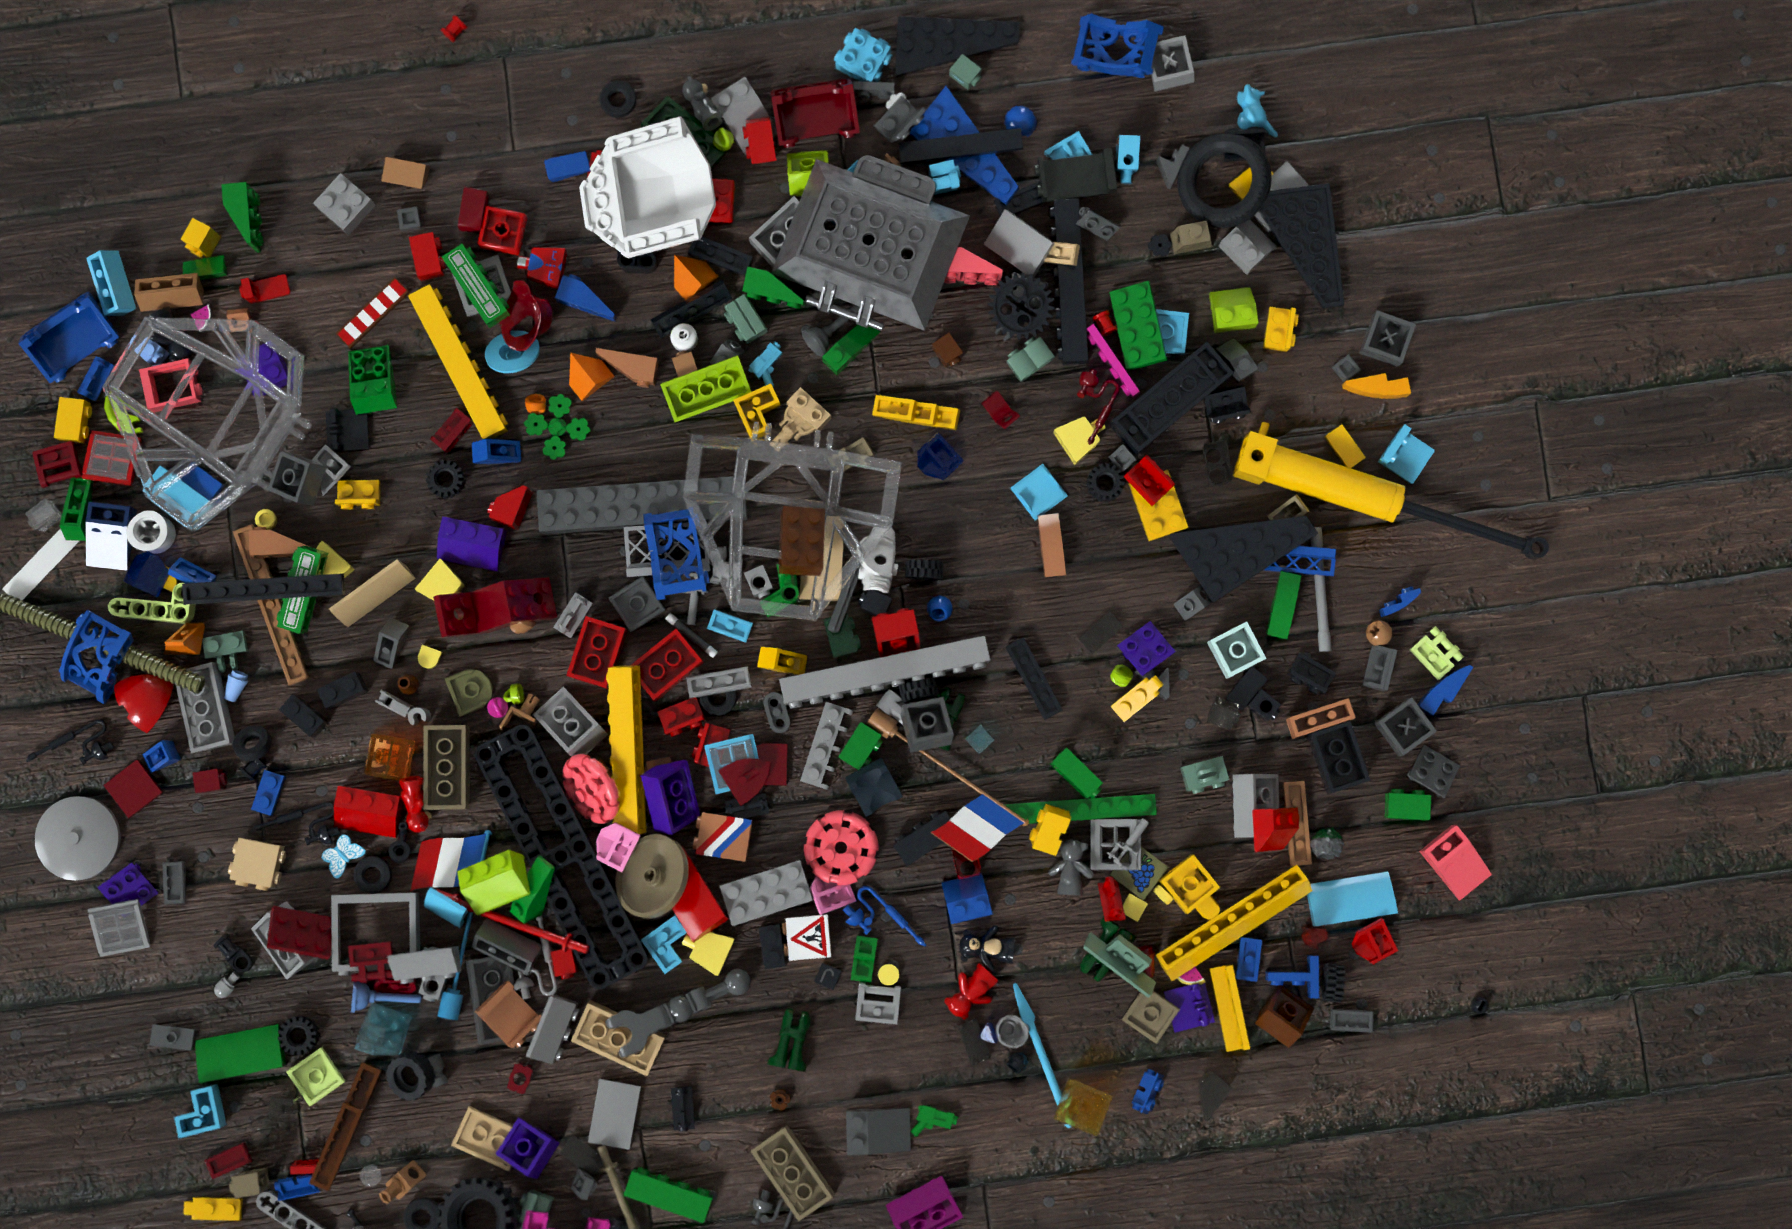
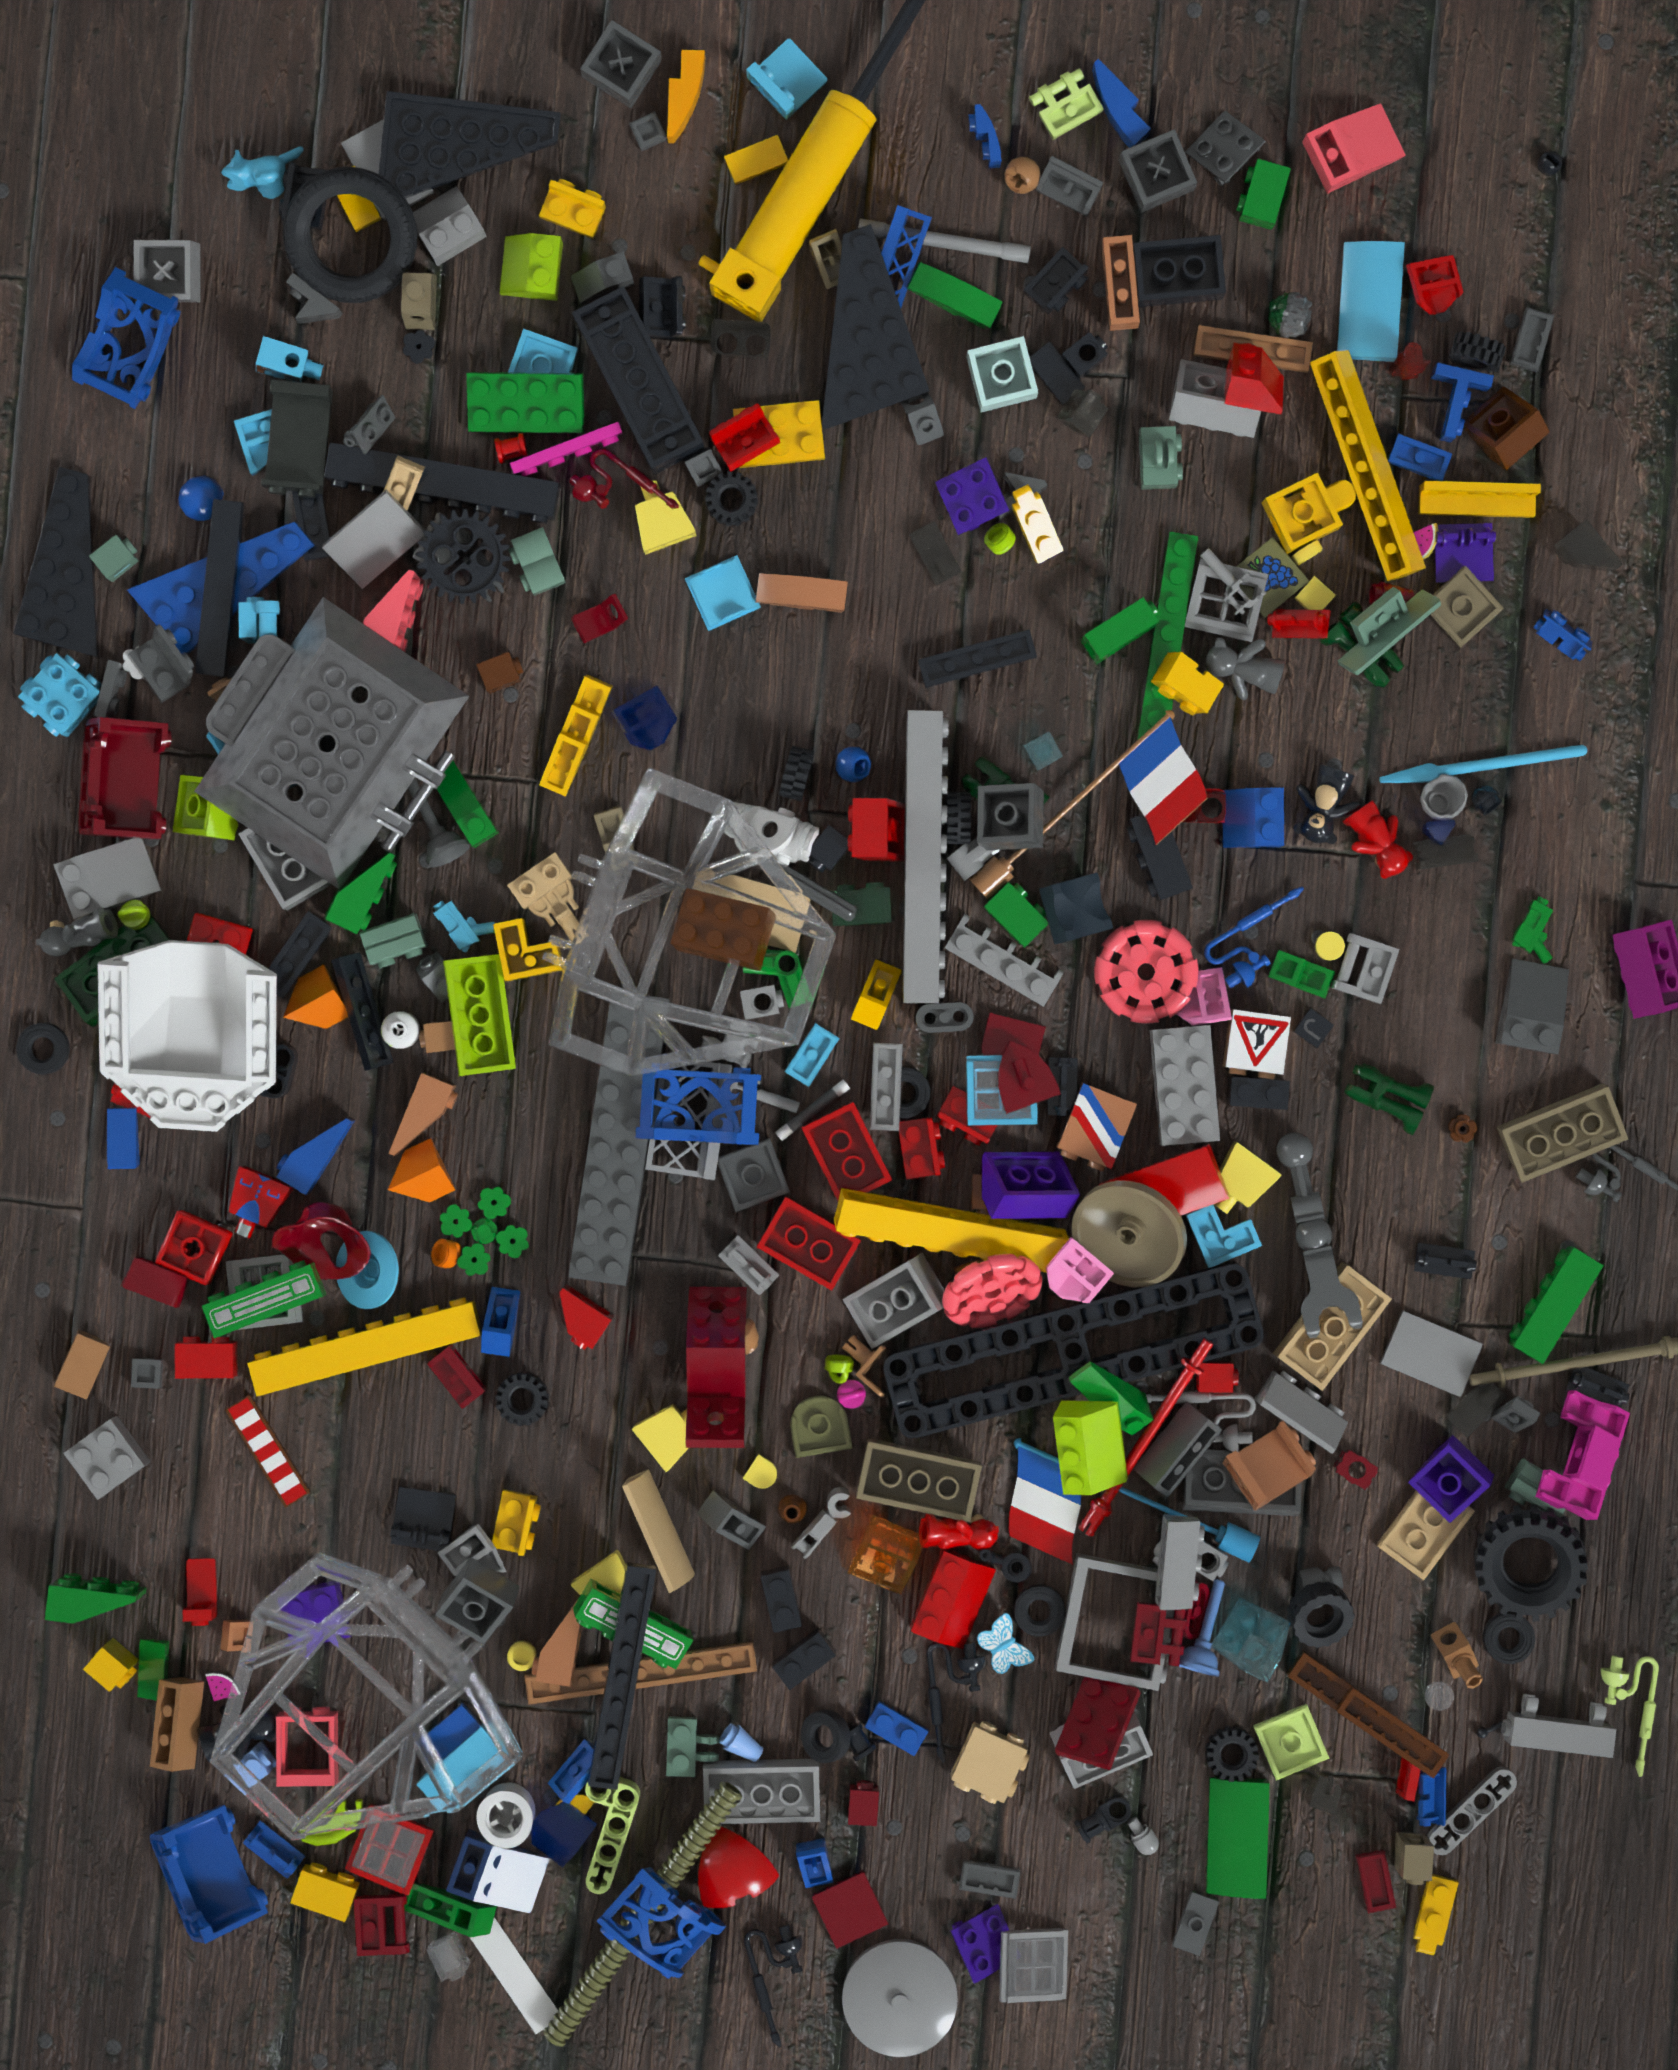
camera: 80 degrees left, 5 degrees up
(111, 283) = (146, 1801): medium azure brick -> none
(186, 640) = (663, 1796): orange slope -> none
(207, 1113) = (1310, 1896): medium azure brick -> none
(371, 380) = (361, 1471): green slope -> none
(445, 907) = (1107, 1521): medium azure slope -> none
(470, 544) = (620, 1383): dark purple slope -> none
(760, 140) = (148, 863): red brick -> none
(1082, 1107) = (1566, 726): clear yellow brick -> none

